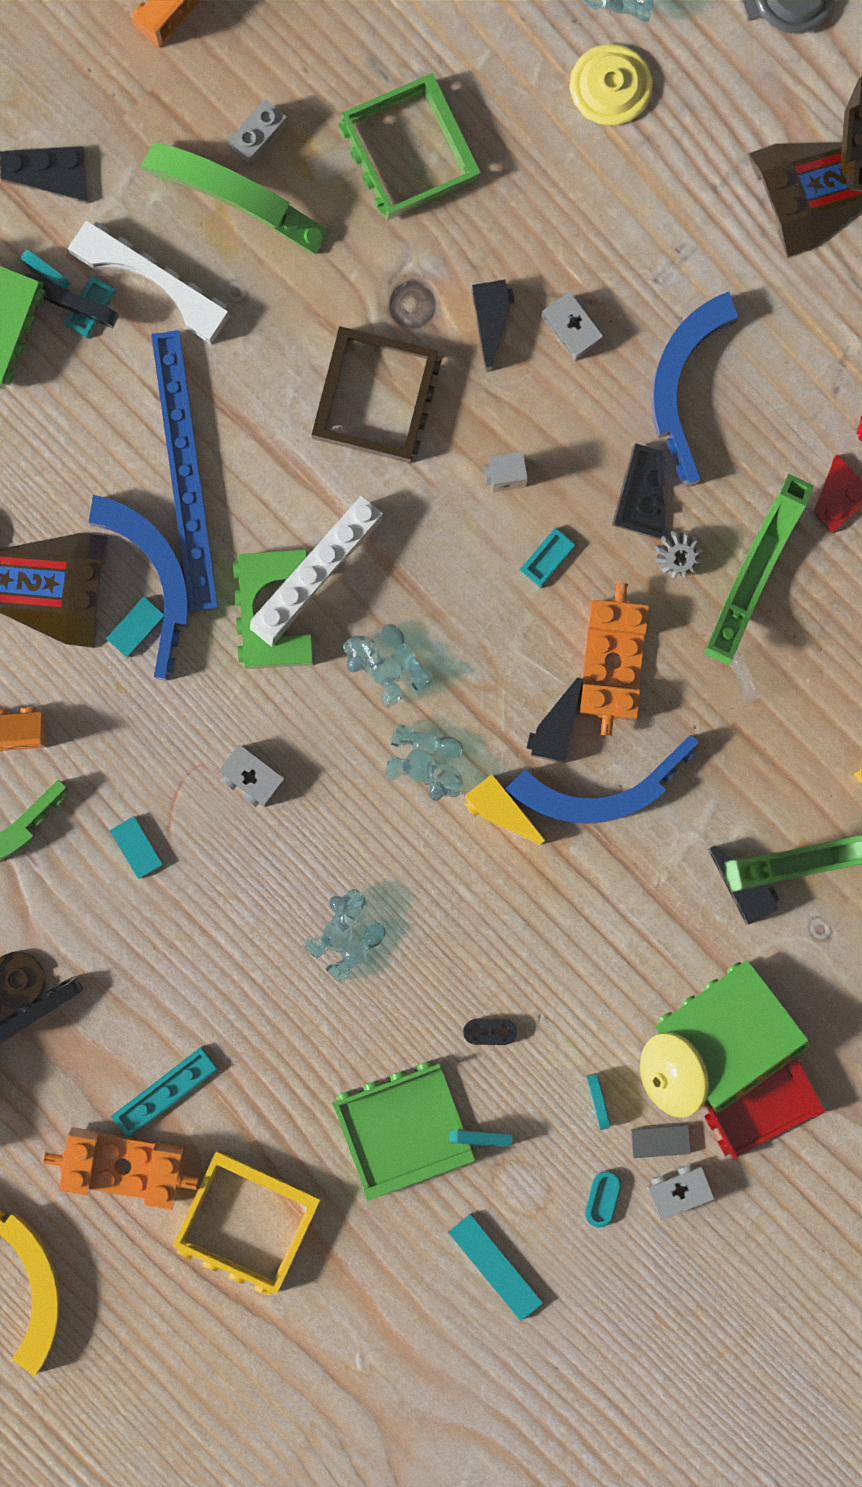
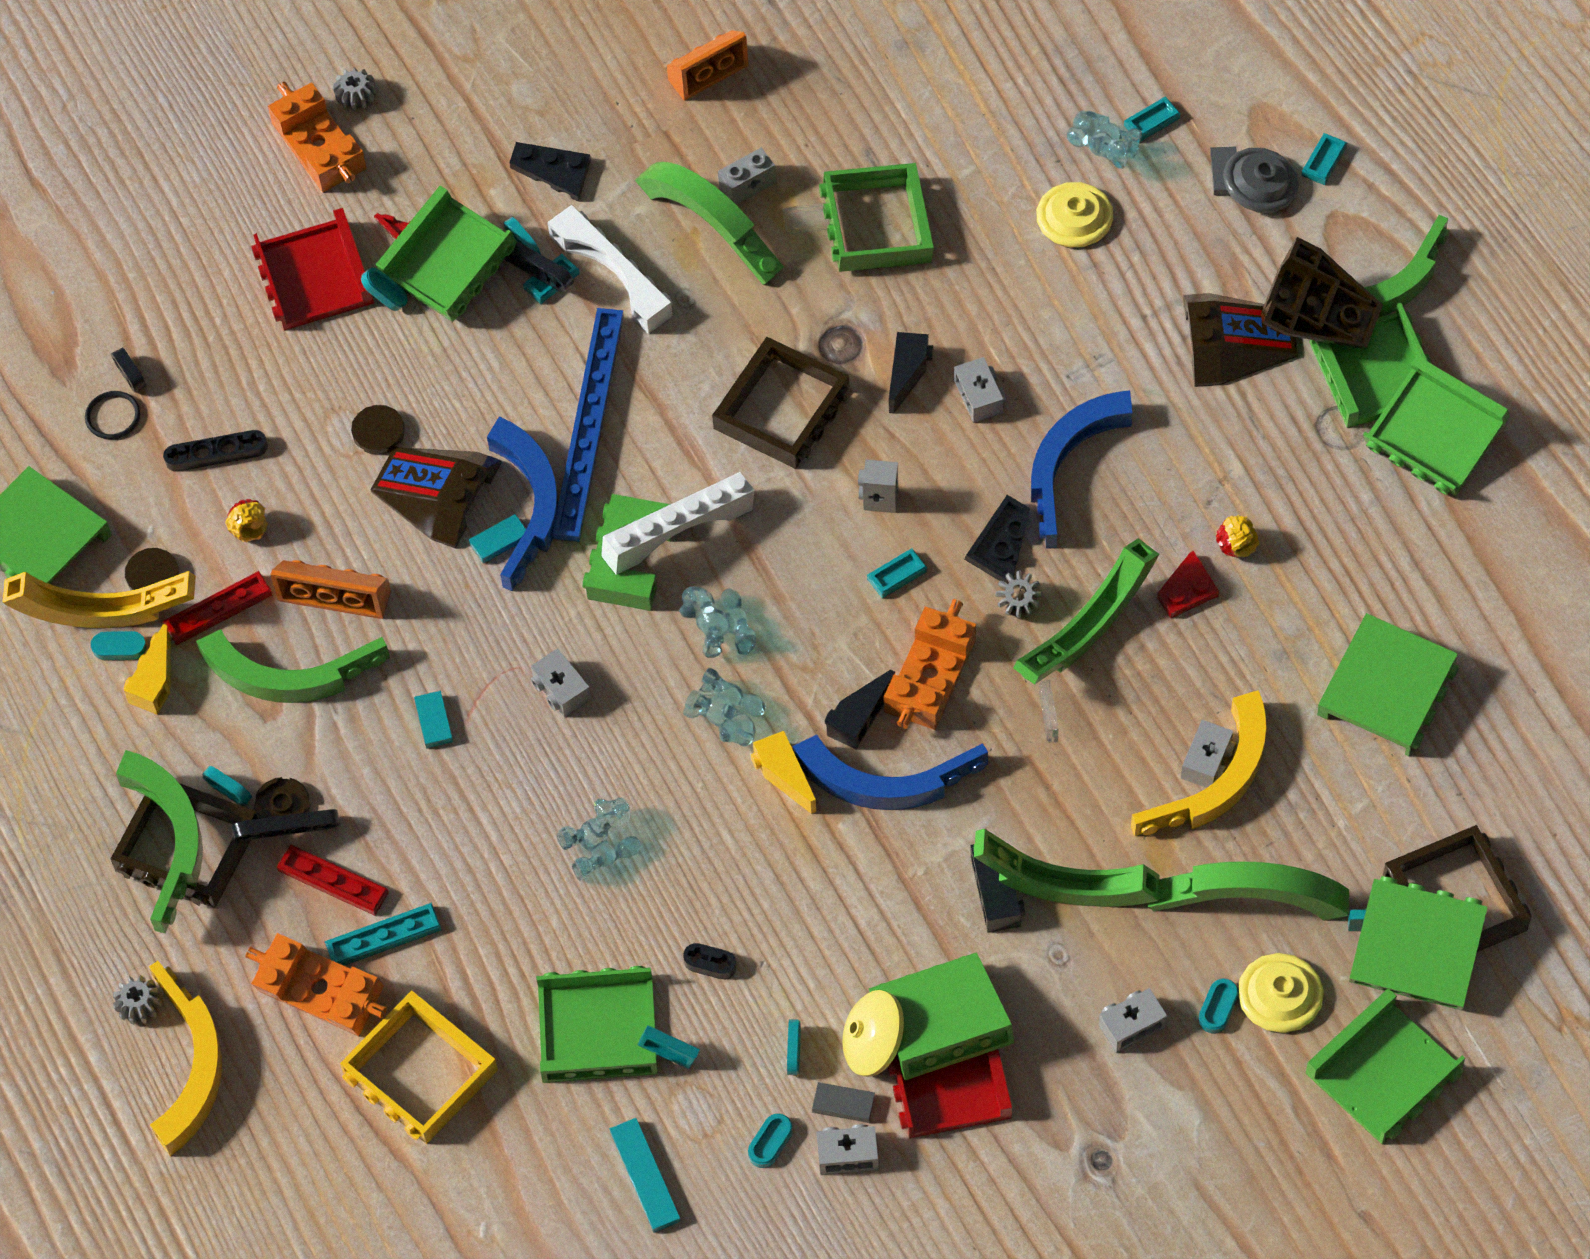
camera: 20 degrees right, 25 degrees down
(95, 1047) = (332, 880): none -> red tile

